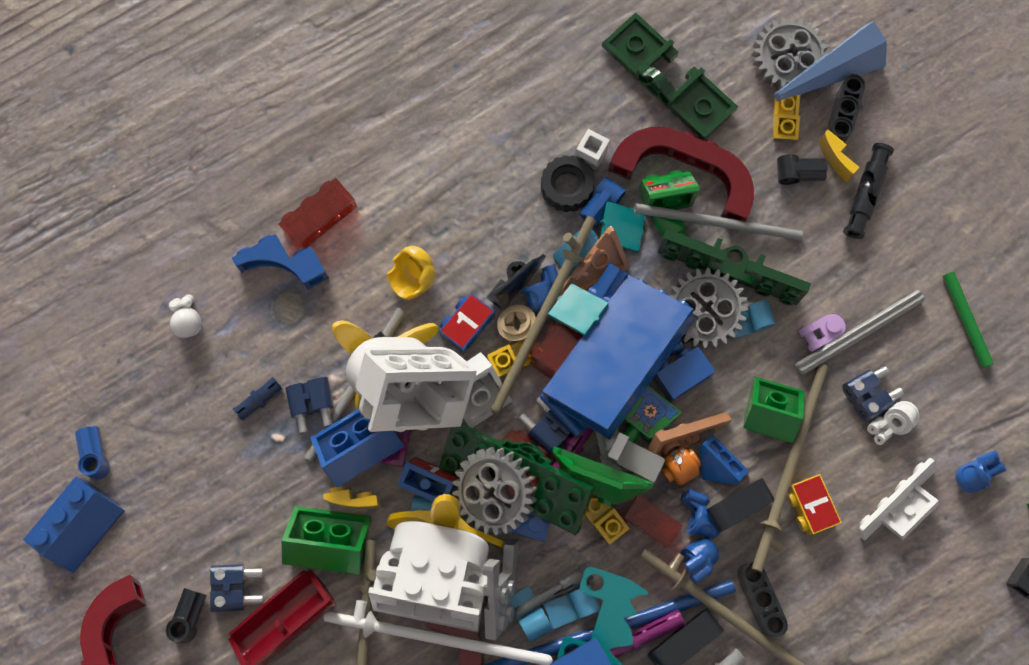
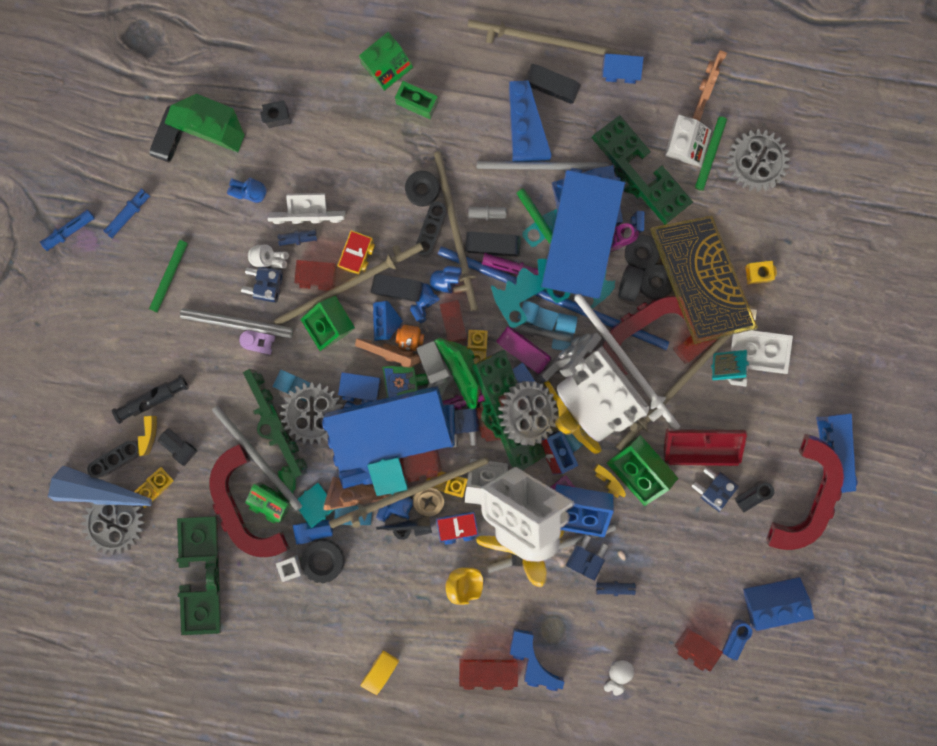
camera: 140 degrees left, 10 degrees up
(124, 409) = (698, 649): none -> clear red brick
(422, 130) = (380, 672): none -> yellow slope
(555, 556) = (523, 349): none -> magenta beam
(826, 635) = (429, 180): none -> black tyre
(831, 447) = (315, 274): none -> clear red brick
(884, 469) = (297, 237): none -> dark blue pin

